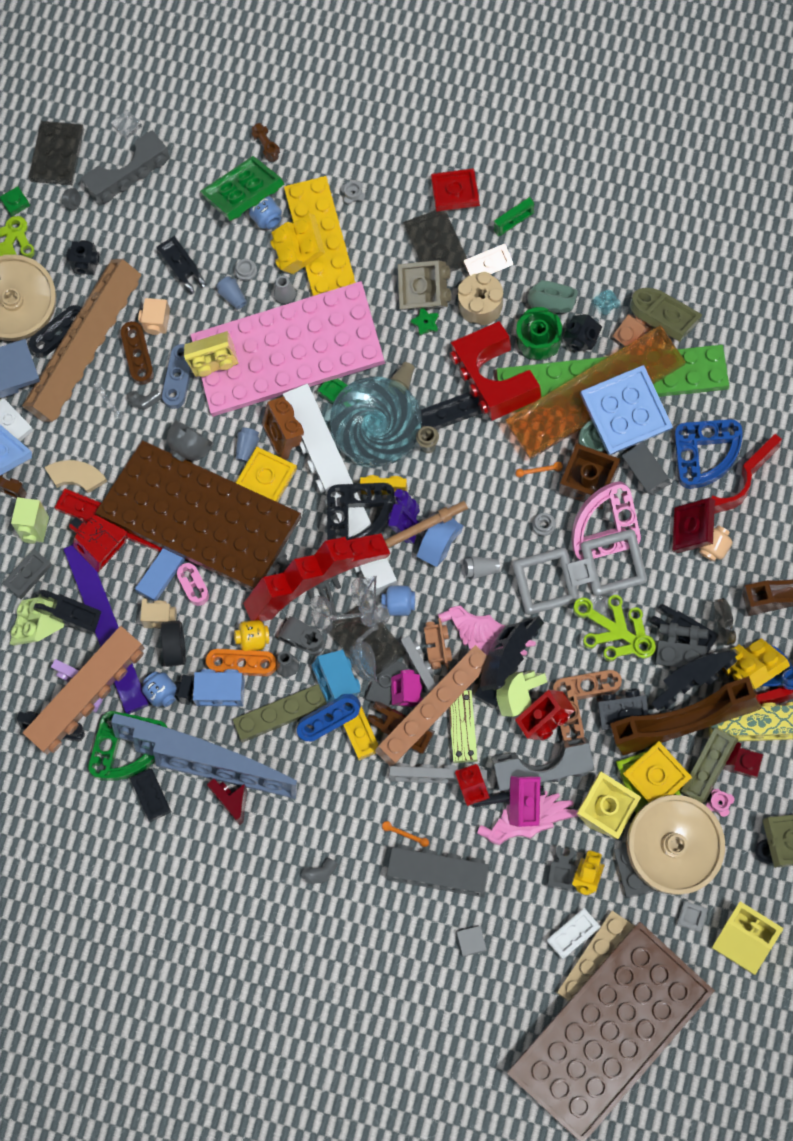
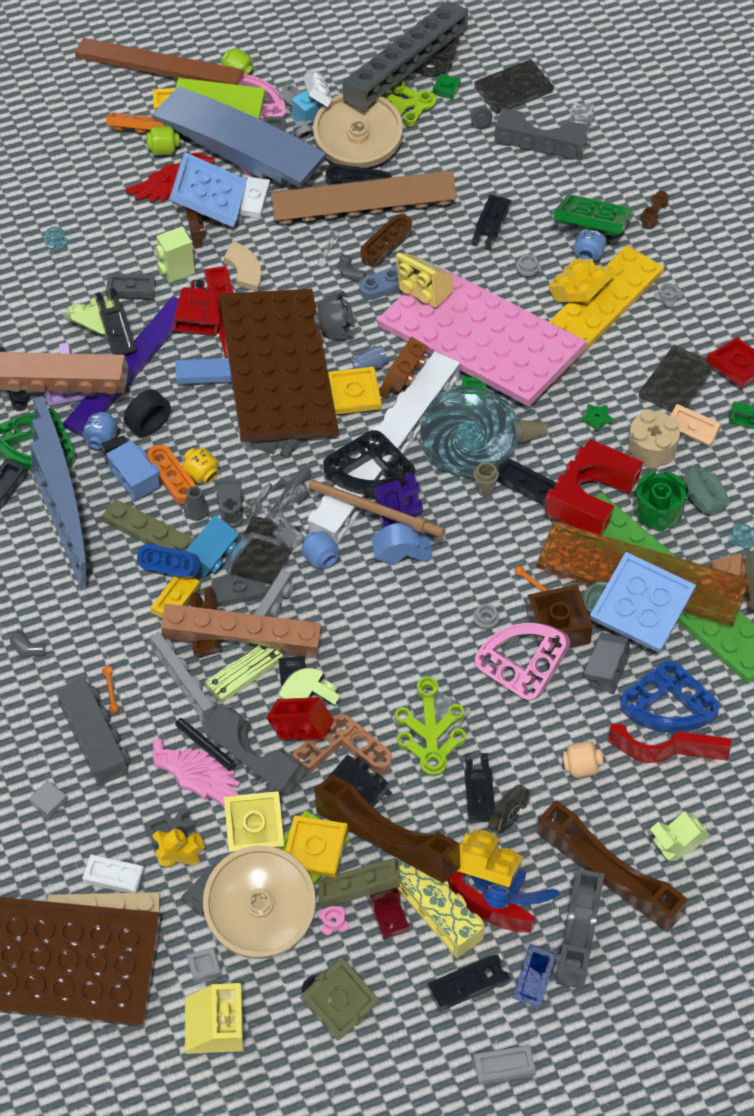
camera: 45 degrees right, 15 degrees down
(83, 257) = (436, 154): black brick -> none
(154, 316) = (429, 231): light nougat brick -> none
(157, 612) = (167, 387): tan brick -> none
(188, 586) = (219, 402): bright pink beam -> none
(231, 292) = (497, 267): sand blue cone -> none
(234, 803) = (41, 541): dark red slope -> none
(284, 290) = (532, 298): light grey cone -> none
(304, 573) = (279, 453): red arch -> none
(396, 481) = (426, 481): yellow plate -> none
(406, 689) = (243, 600): dark pink brick -> none
(423, 285) = (627, 390): dark tan plate -> none
(436, 635) = (313, 598): nougat hinge -> none
(472, 784) = (188, 704): red bracket -> none
(476, 629) = (344, 637): bright pink animal -> none
(479, 566) = (403, 592): light grey cone -> none
(505, 652) = (330, 650): black slope -> none
(524, 801) = (207, 754): dark pink slope -> none
(579, 571) = (464, 668): light grey bar -> none
(582, 332) = (691, 532): black brick -> none
(677, 653) = (451, 798): dark grey plate -> none
(693, 525) = (583, 728): dark red plate -> none
(700, 669) = (434, 810): black slope -> none

